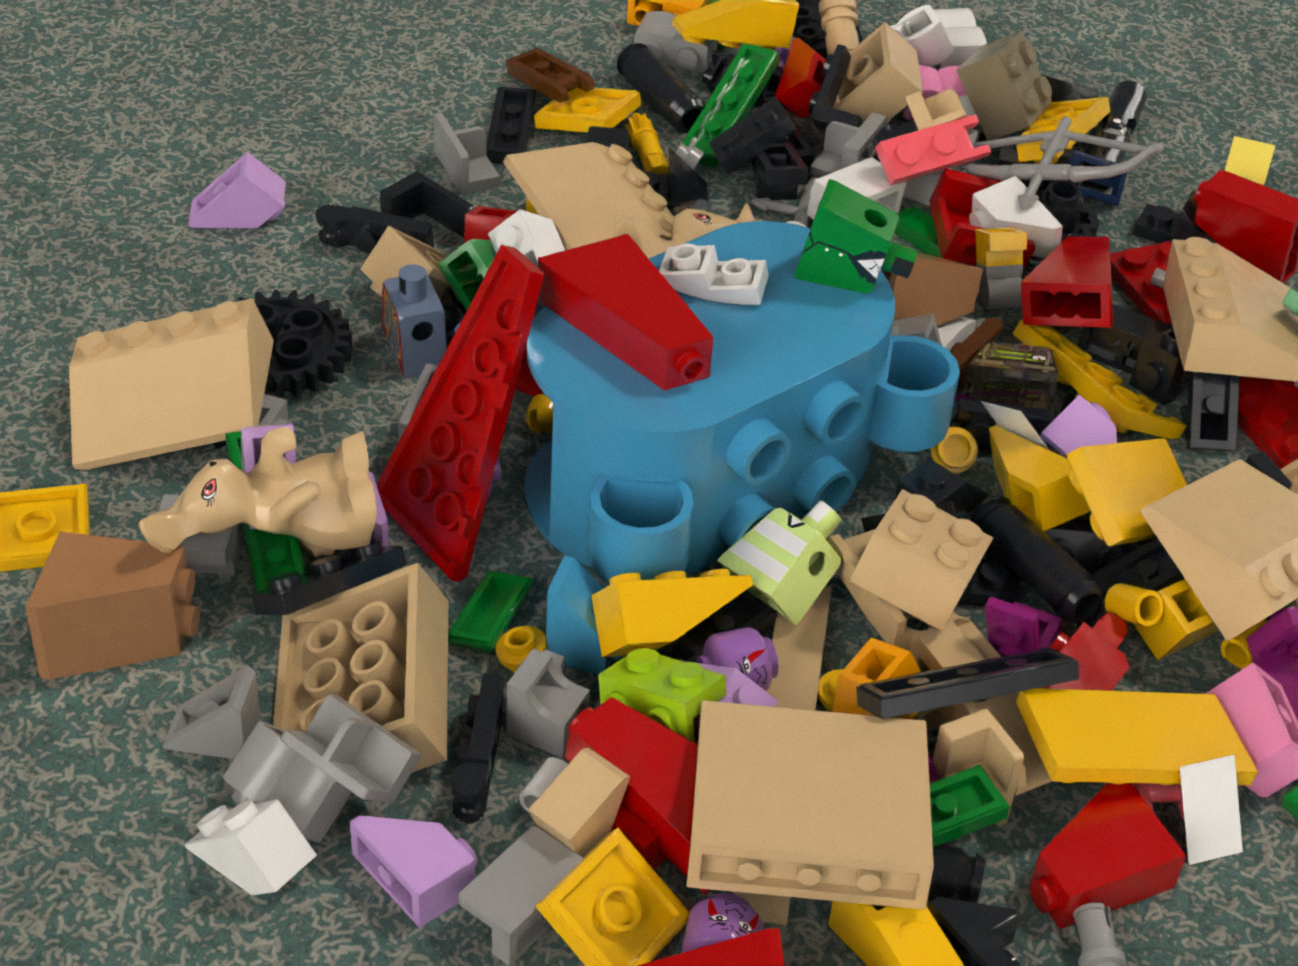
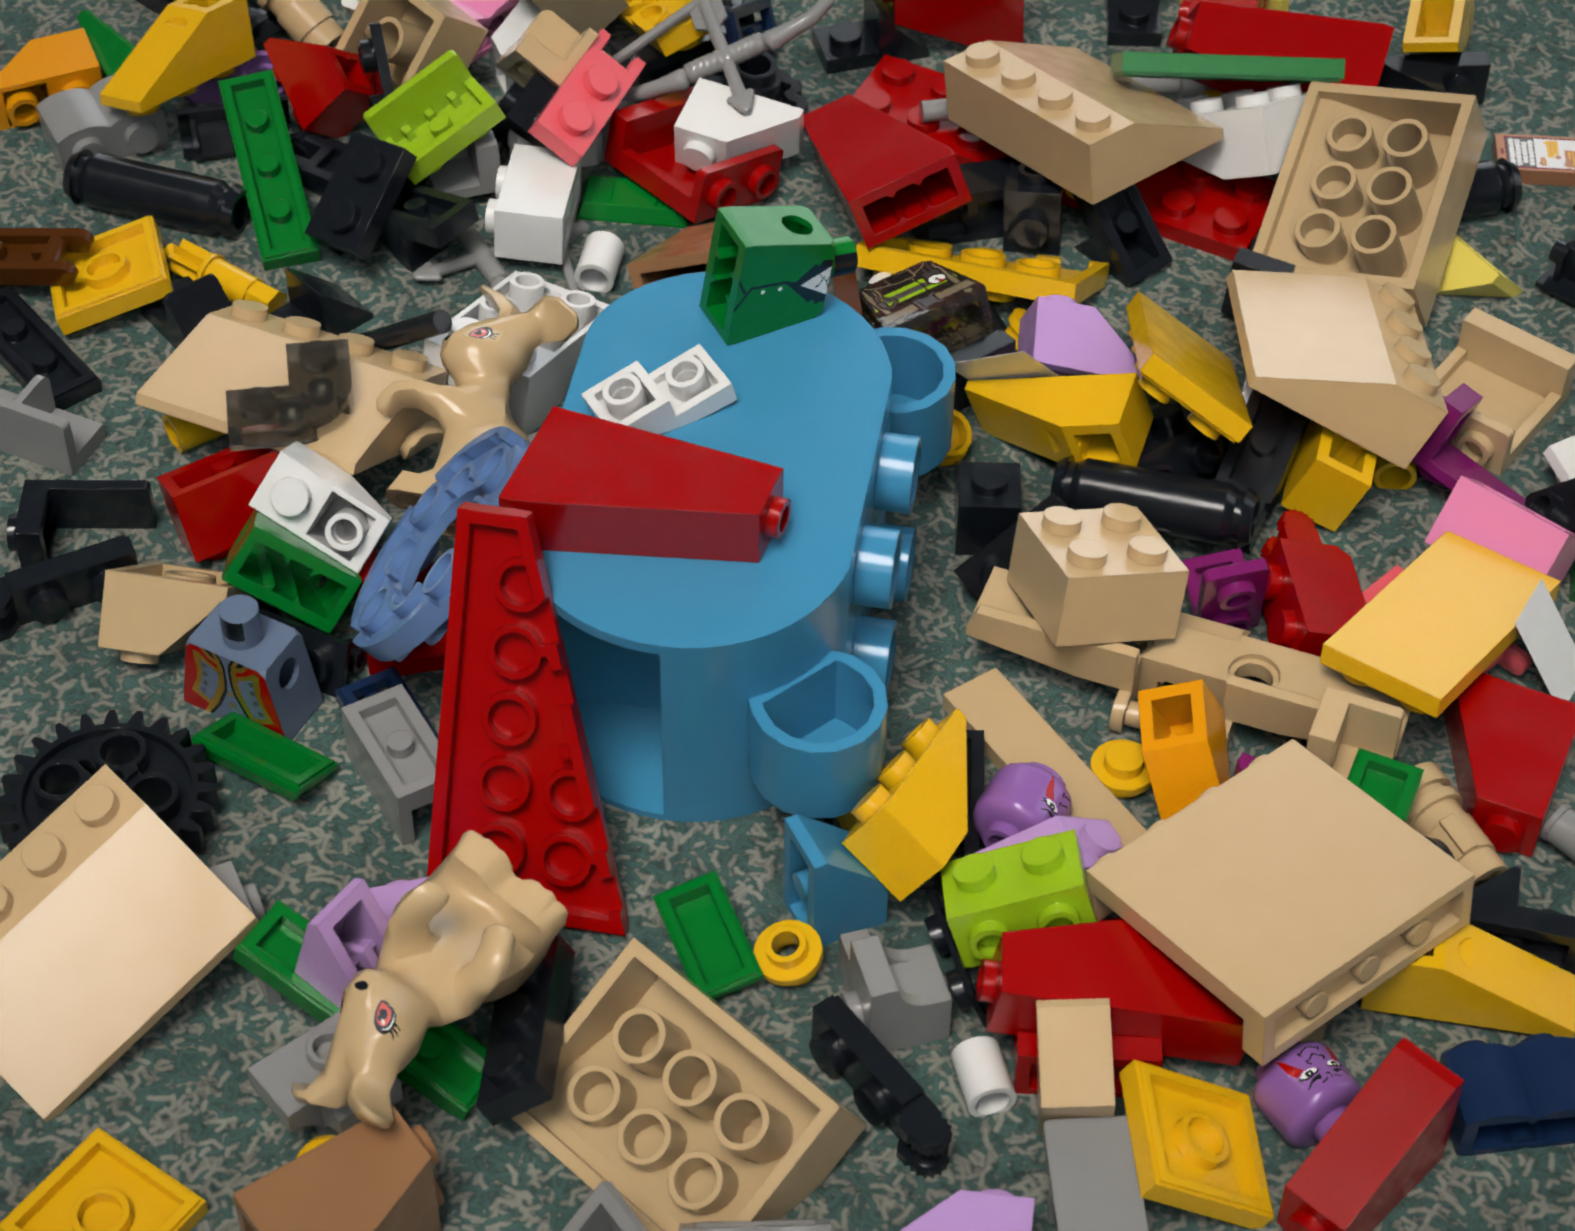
camera: 40 degrees left, 5 degrees up
(355, 751) = (805, 1182): light grey panel -> none
(380, 373) = (265, 756): none -> green tile
(599, 199) = (293, 412): none -> clear smoke plate
(690, 154) = (291, 257): light grey plate -> none
(787, 559) = (953, 663): yellowish green torso -> none
(832, 113) = (435, 114): none -> lime bracket
(966, 682) = (1277, 676): black tile -> none
(1001, 258) = (768, 175): leg -> none
(1010, 852) = (1440, 815): none -> tan axle
(1134, 604) = (1298, 488): yellow hinge -> none

